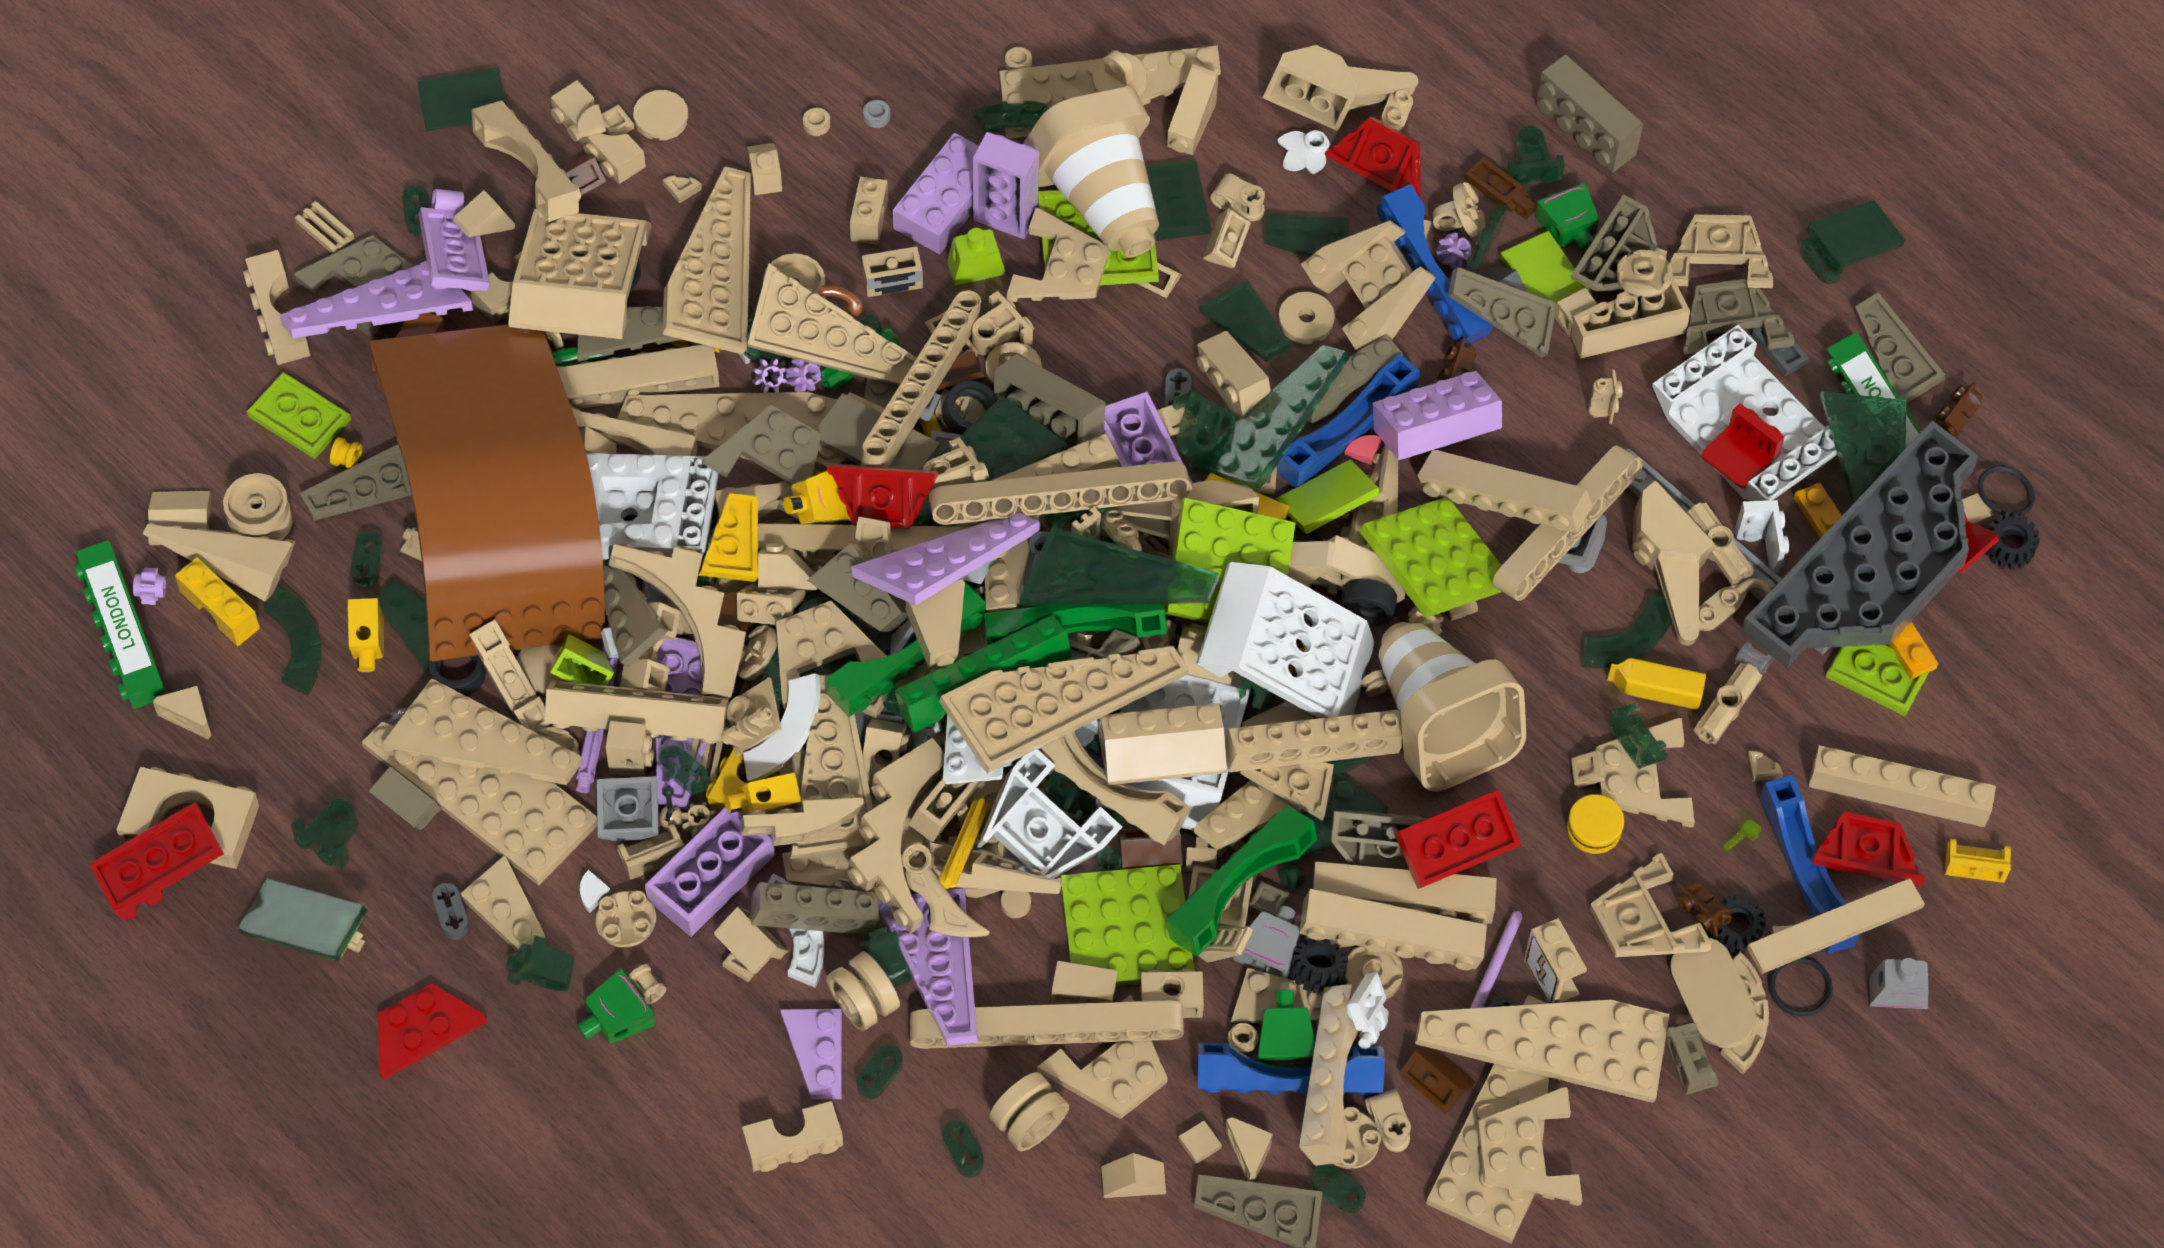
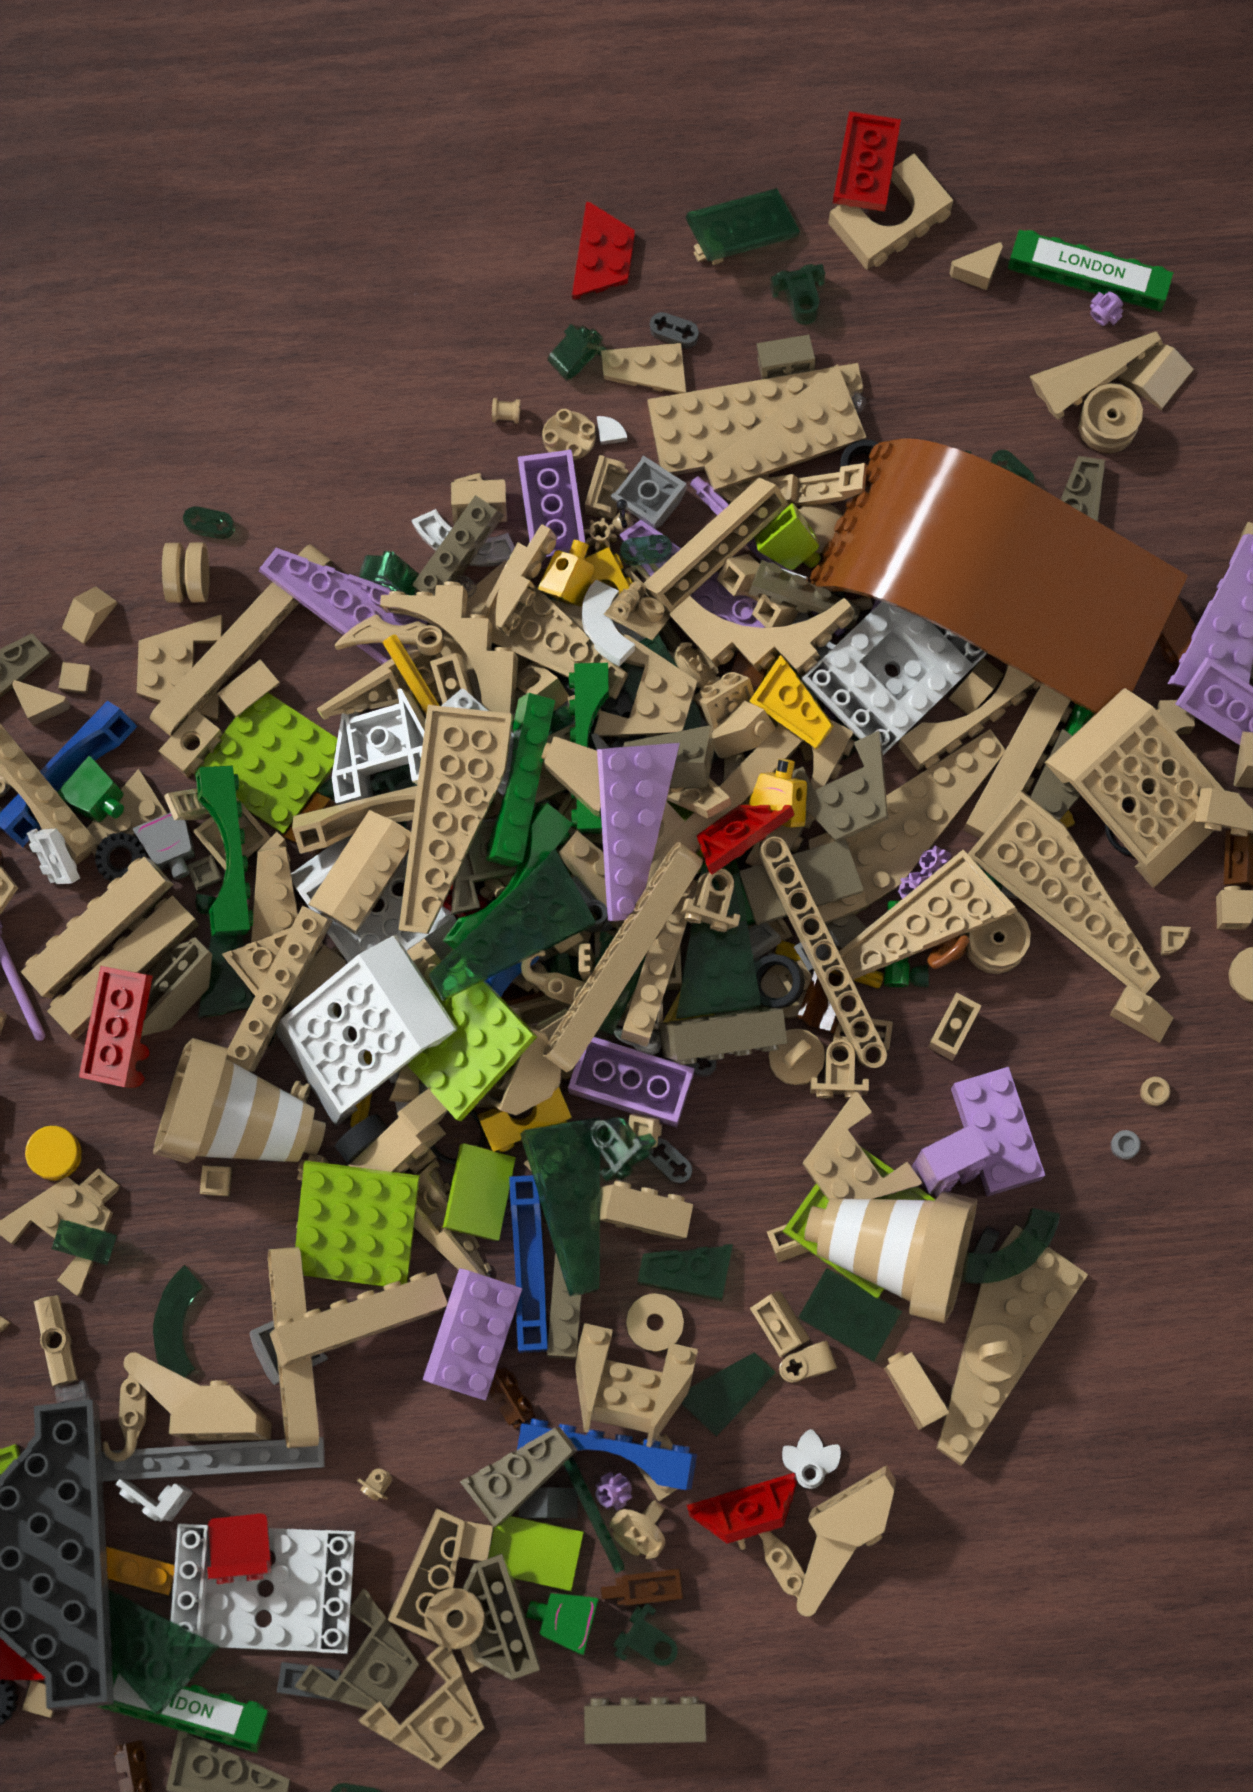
camera: 135 degrees right, 15 degrees up
(207, 590) = (1035, 343): yellow arch -> none
(299, 415) = (1181, 512): lime tile -> none
(303, 637) = (981, 388): clear green tile -> none
(345, 453) = (1115, 515): yellow wheel -> none
(365, 632) = (942, 420): yellow torso -> none
(616, 1010) = (502, 376): green torso -> none
(629, 749) = (690, 519): tan brick -> none
(769, 1148) = (317, 398): tan arch -> none
(818, 1048) = (363, 487): lavender wing -> none
(863, 991) = (368, 532): tan wheel -> none
(869, 210) = (1029, 1057): tan brick -> none
(874, 1068) = (316, 511): clear green beam -> none
(974, 257) = (915, 1105): lime torso -> none
(1018, 58) = (1088, 1301): tan tile -> none
(1246, 1030) = (115, 762): tan plate -> none
(1363, 448) = (502, 1263): coral tile -> none
(1384, 963) = (78, 894): tan tile -> none
(1658, 682) = (115, 1305): yellow piece -> none
(1727, 557) = (196, 1454): tan piece -> none
(1985, 473) = (31, 1769): black tyre -> none

